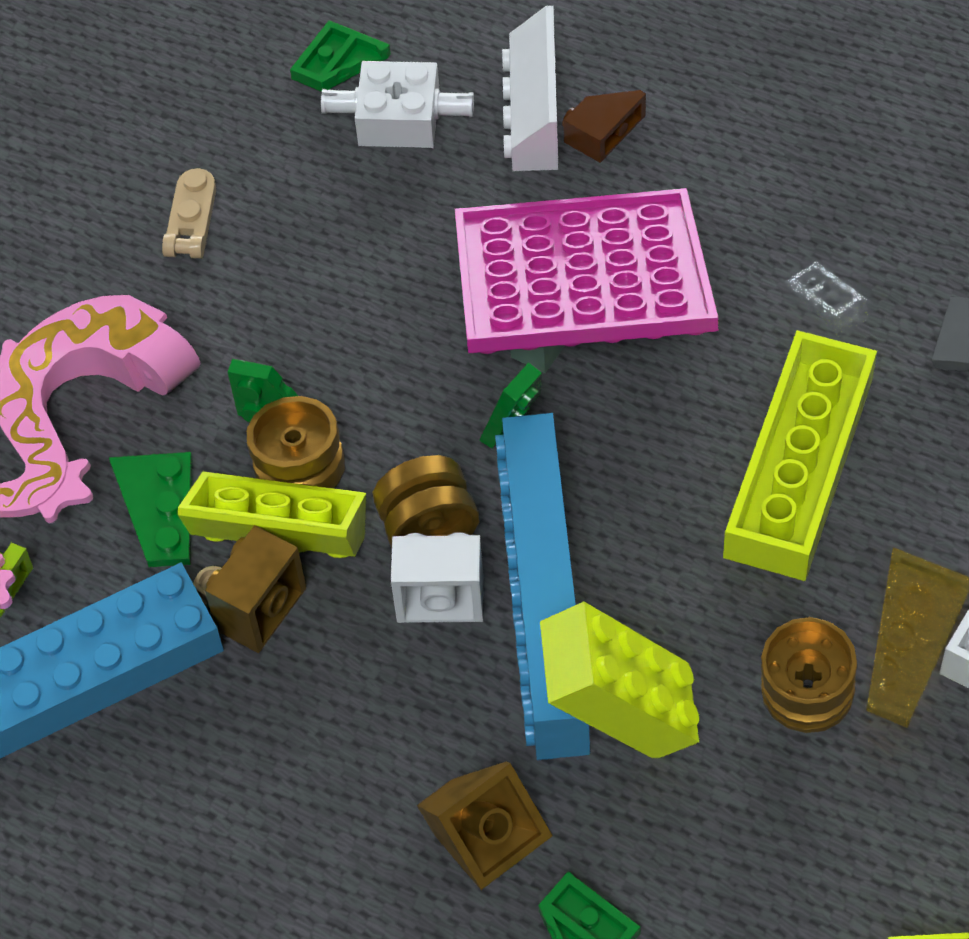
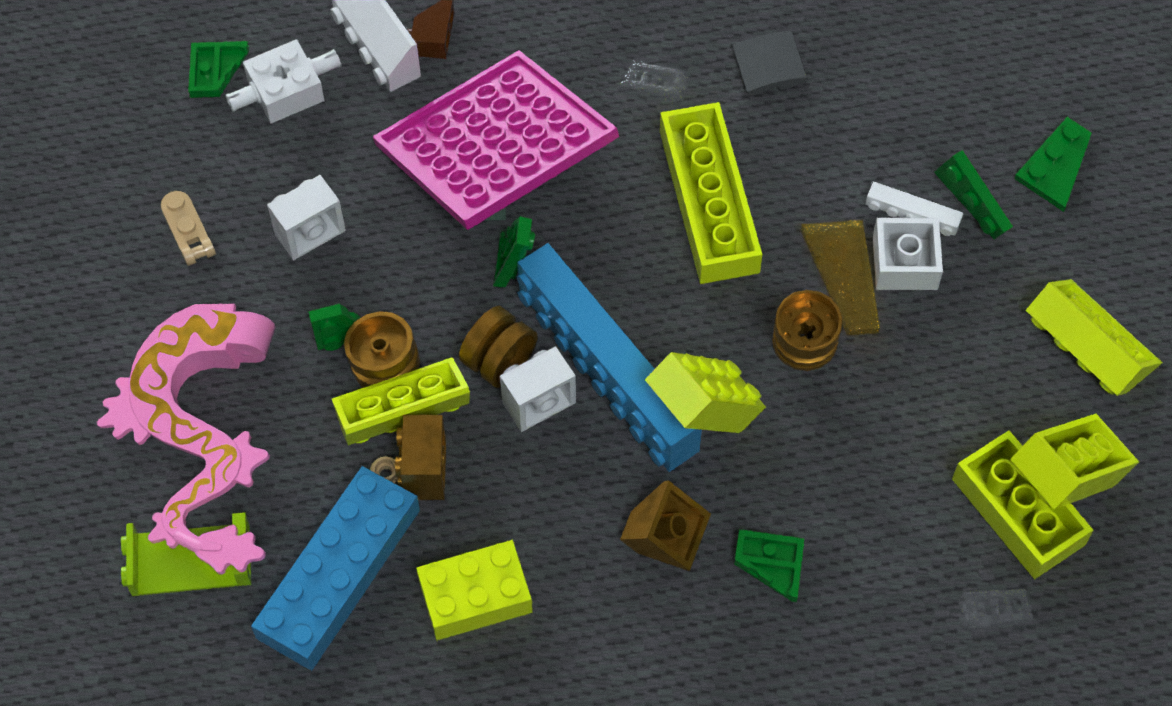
camera: 35 degrees left, 5 degrees up
(152, 493) = (308, 436): green wing -> none
(213, 772) = (474, 590): none -> neon yellow brick
(314, 260) = (306, 217): none -> white brick

